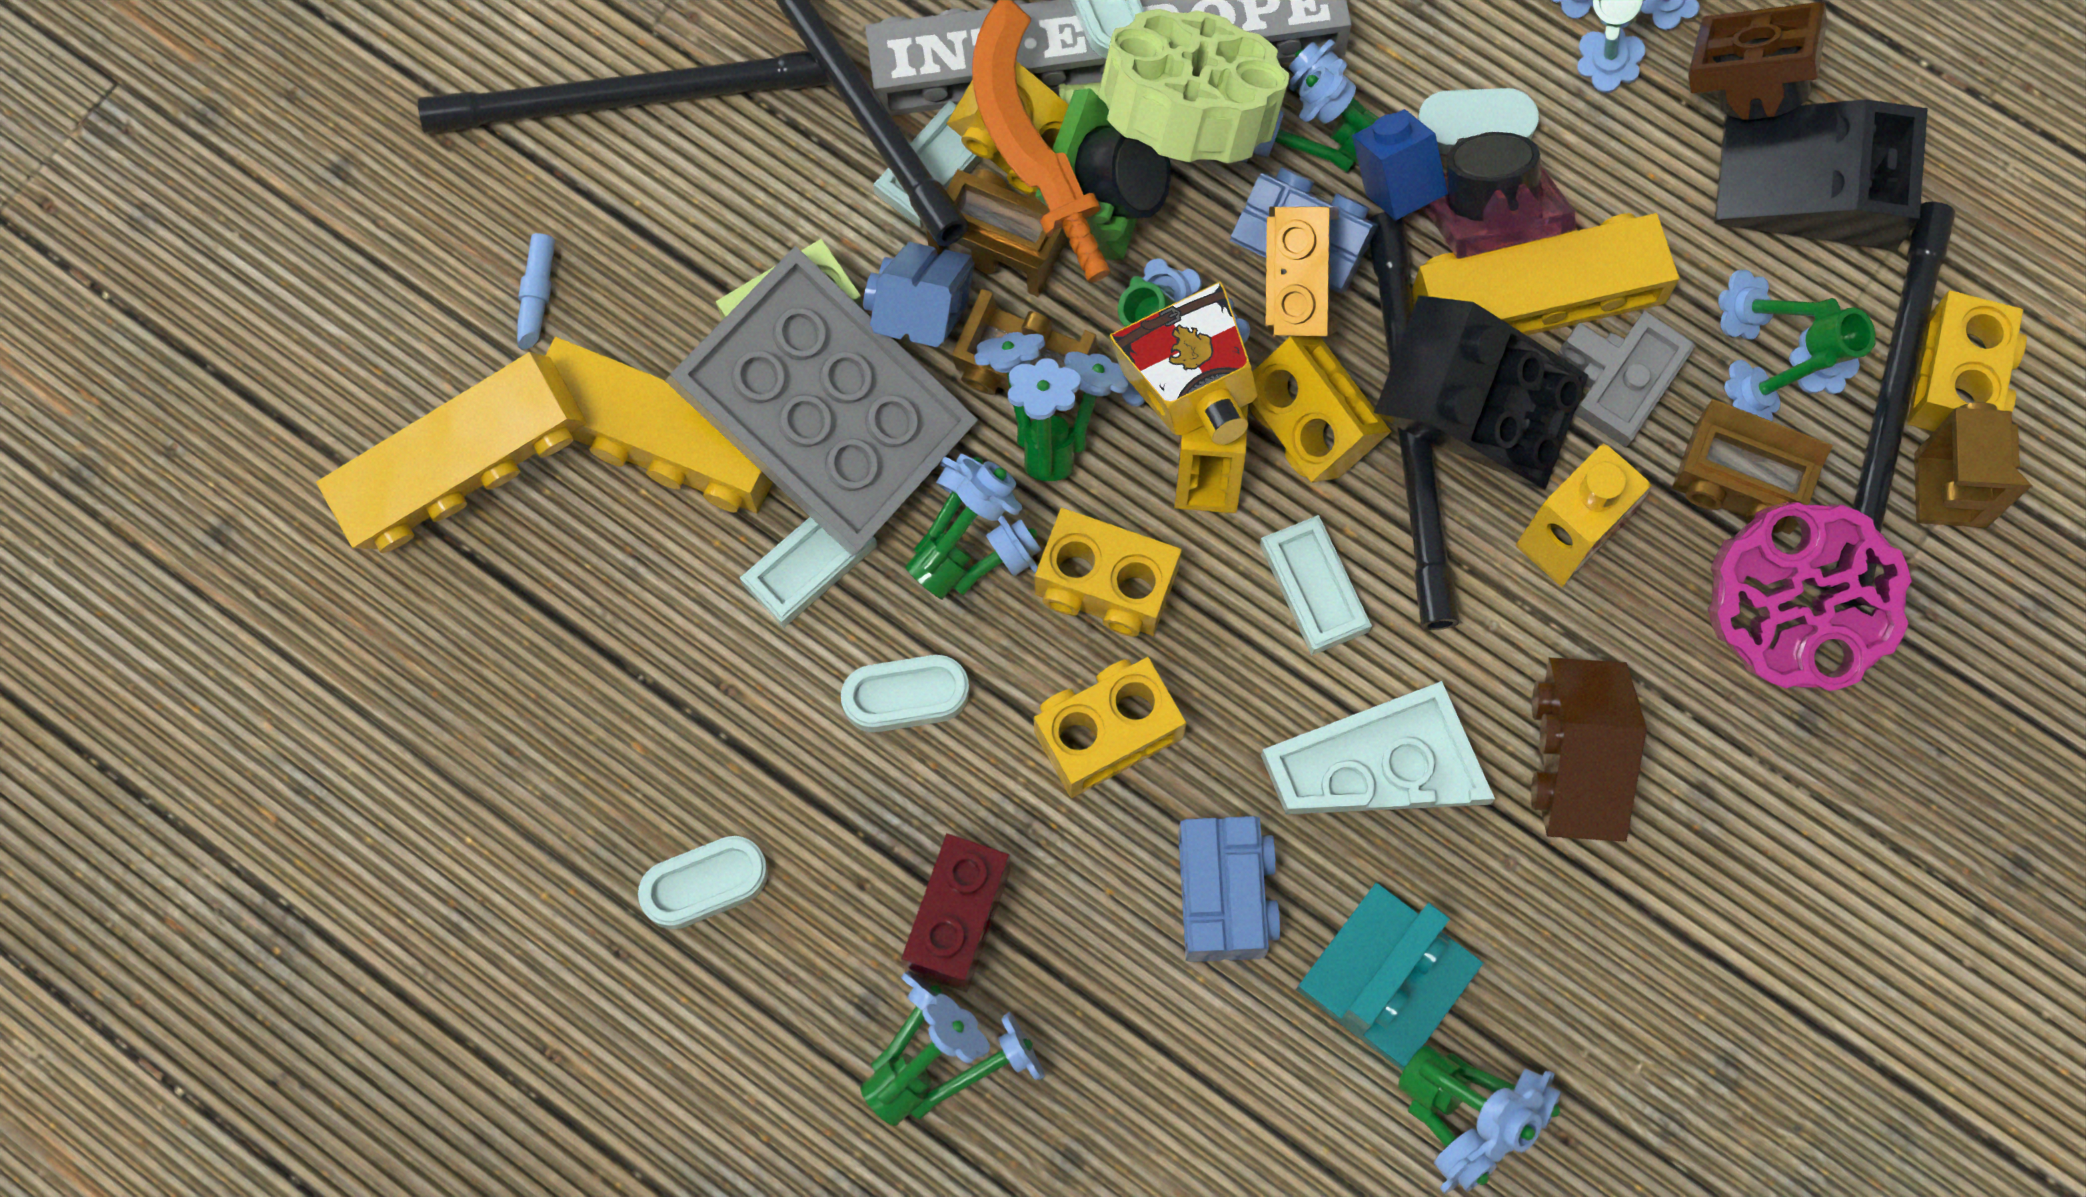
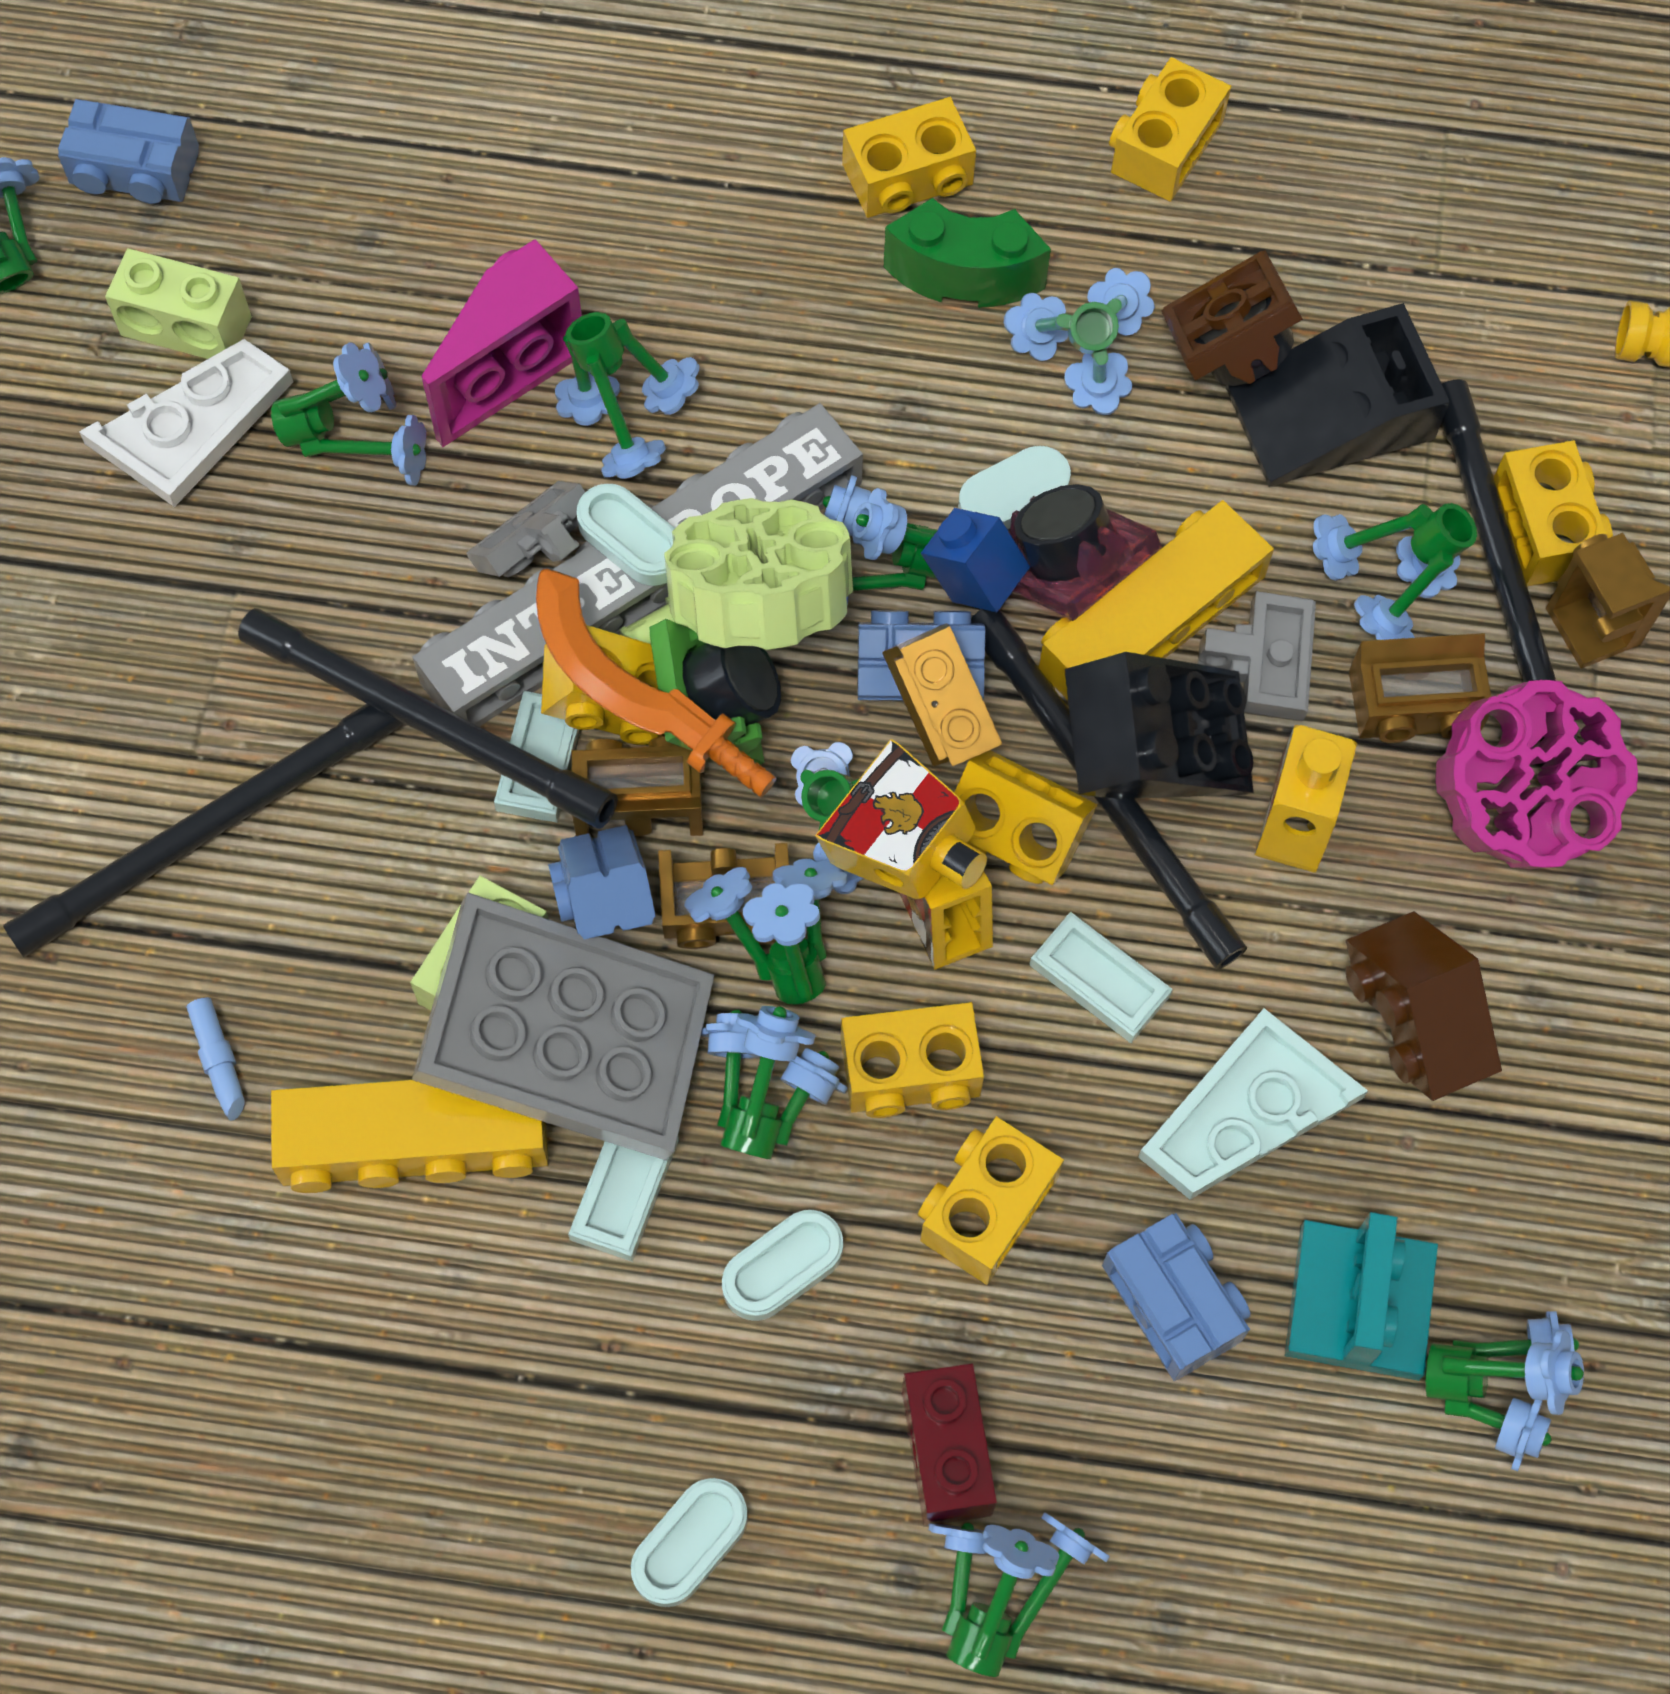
camera: 30 degrees left, 5 degrees down
(452, 453) = (230, 1252): yellow brick -> none

